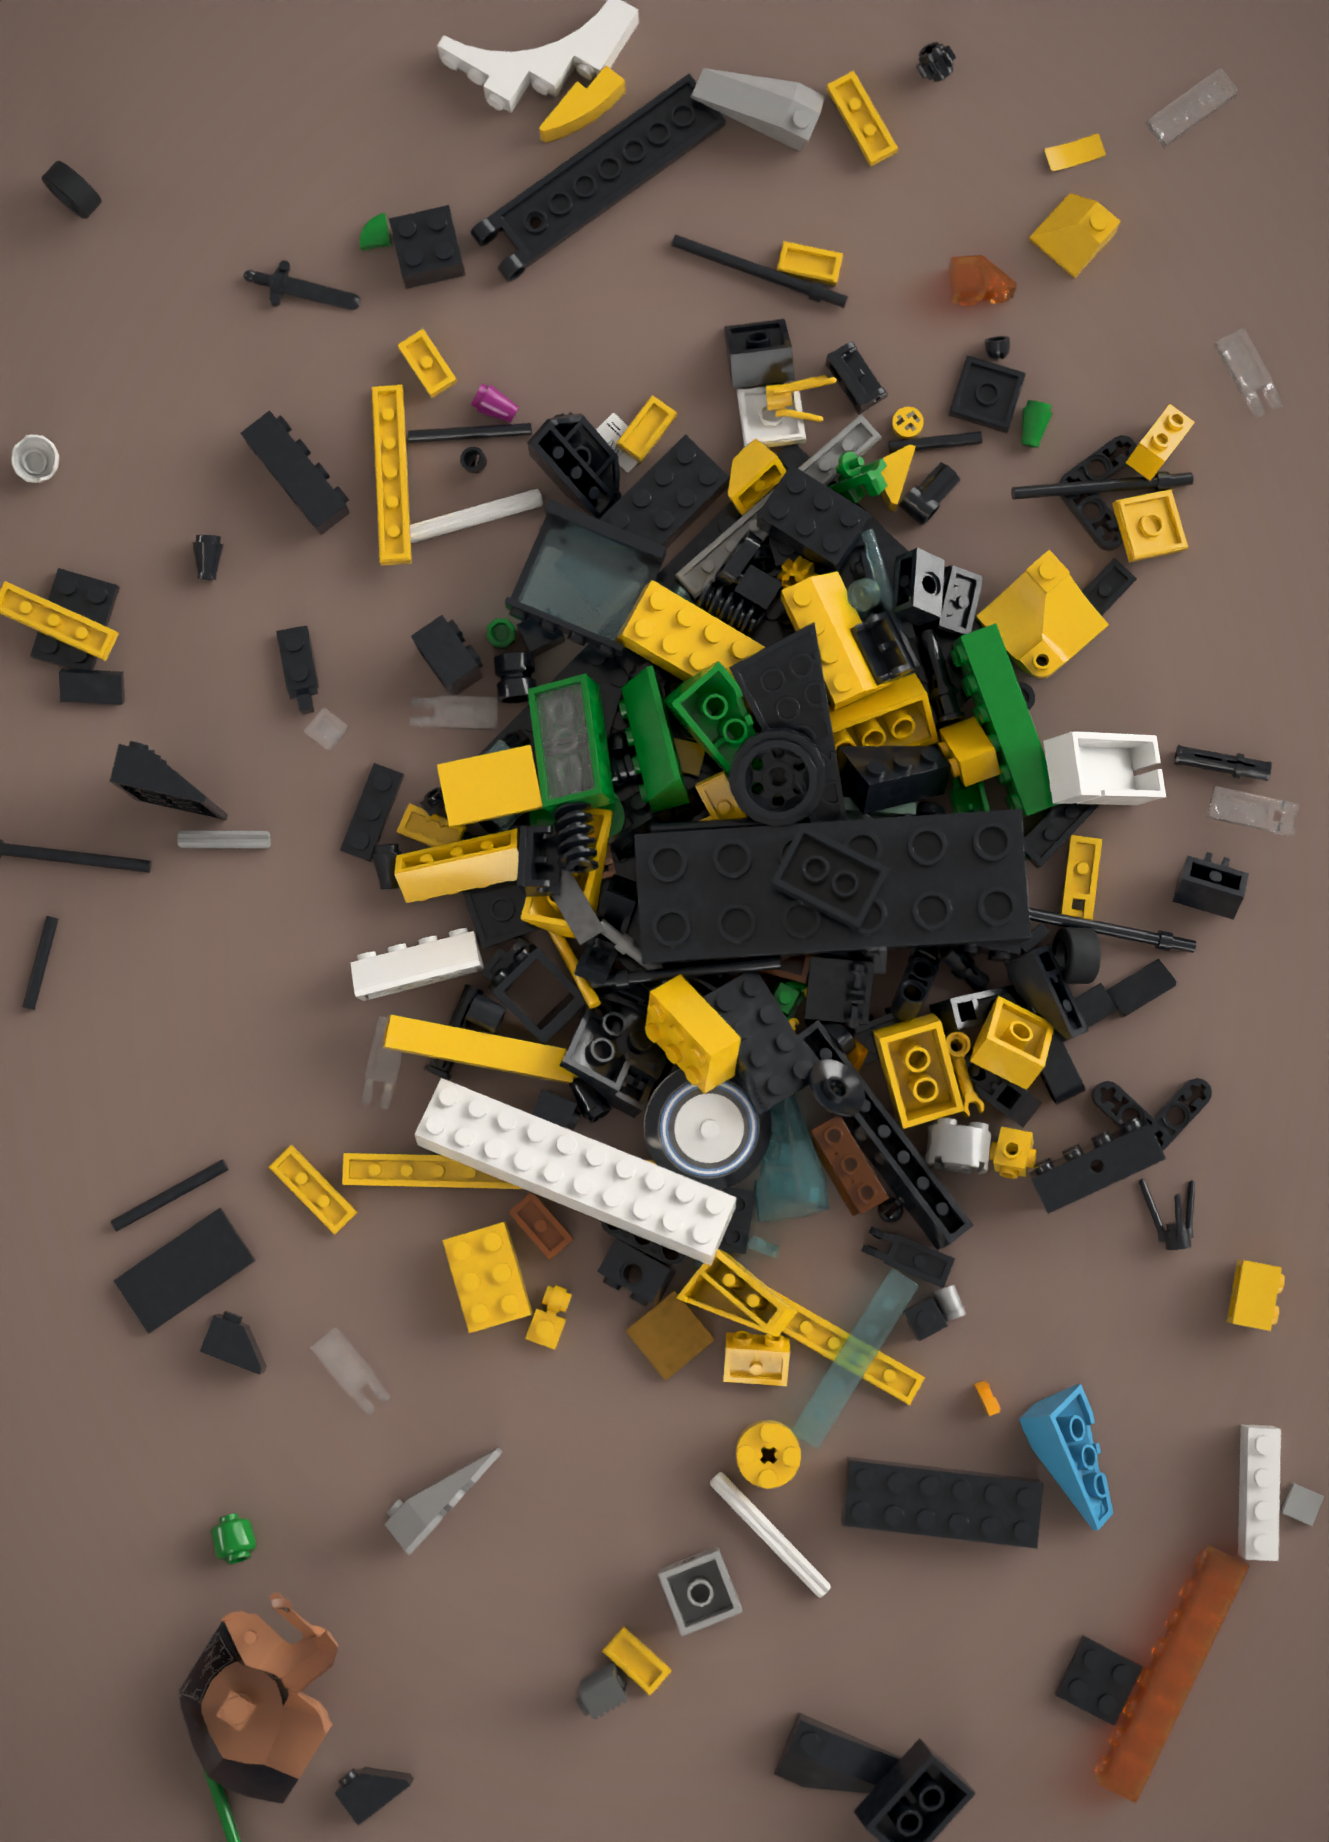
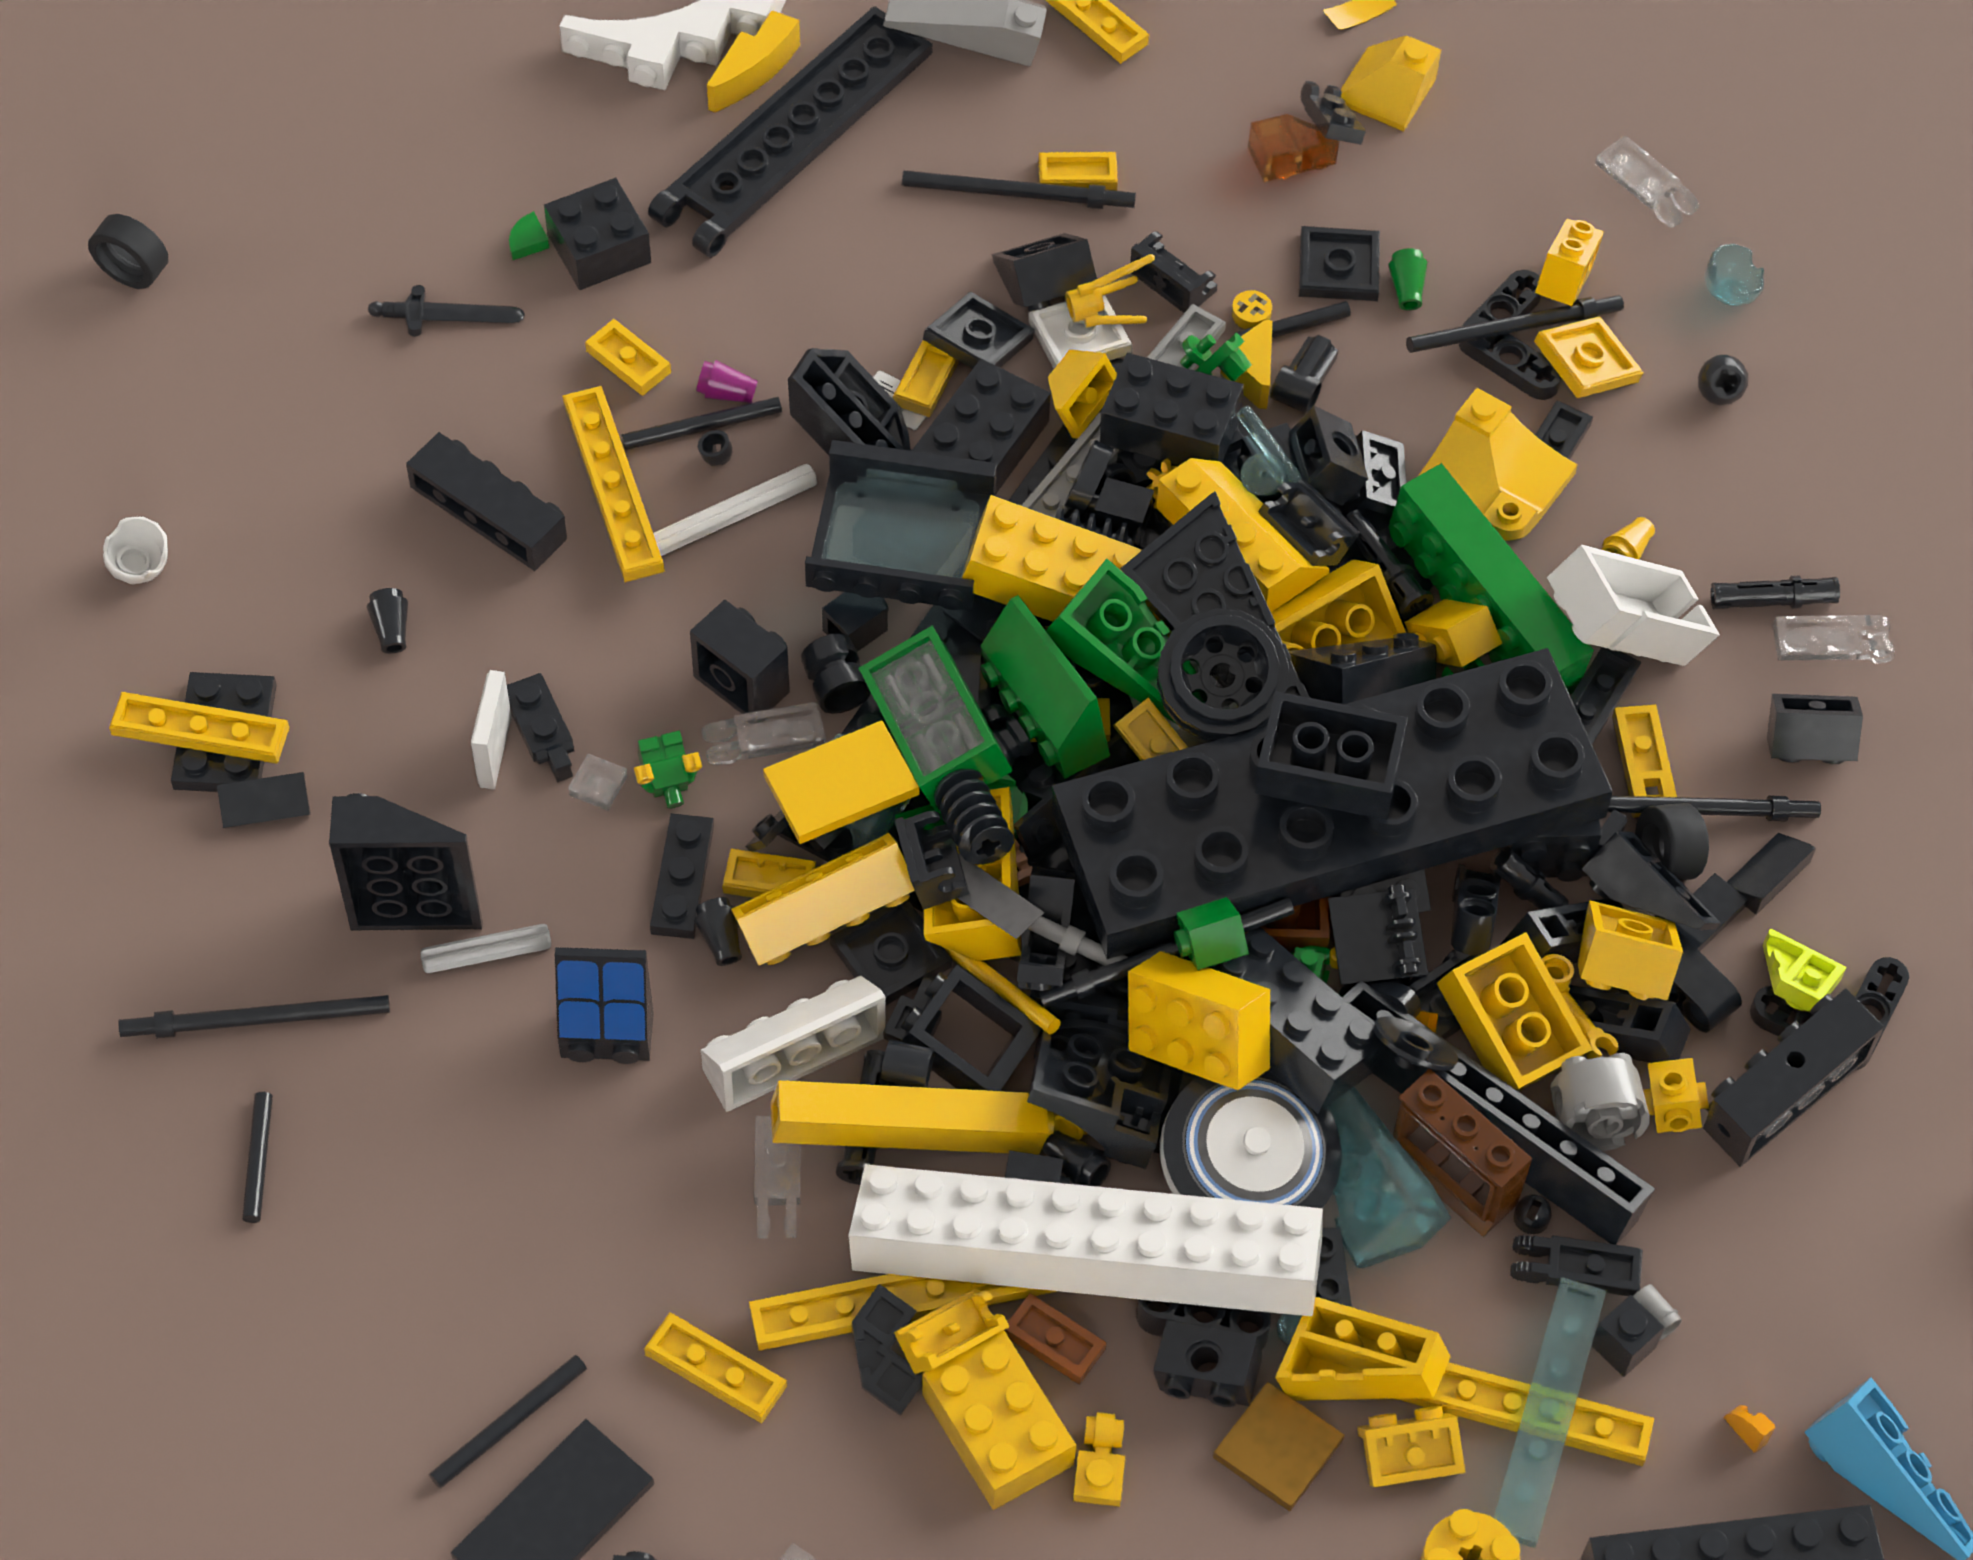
camera: 20 degrees left, 25 degrees down
(258, 672) = (491, 729): none -> white tile
(289, 919) = (603, 1004): none -> slope
(377, 727) = (666, 767): none -> green piece
(420, 1221) = (882, 1370): none -> black tile
(469, 1212) = (949, 1331): none -> yellow hinge
(501, 633) = (800, 630): green tile -> none
(694, 401) = (978, 331): none -> black tile
(713, 979) = (1211, 933): none -> green brick
(763, 1247) = (1369, 1298): clear light blue tile -> none
(997, 347) = (1336, 211): black hinge -> none
(1017, 261) = (1331, 114): none -> black hinge
(1125, 698) = (1631, 539): none -> yellow cone
(1133, 1078) = (1799, 972): none -> neon yellow wing
(1178, 1233) = (1929, 1152): black plant -> none
(1245, 571) = (1723, 379): none -> black piece
(1285, 479) = (1733, 276): none -> clear light blue hair

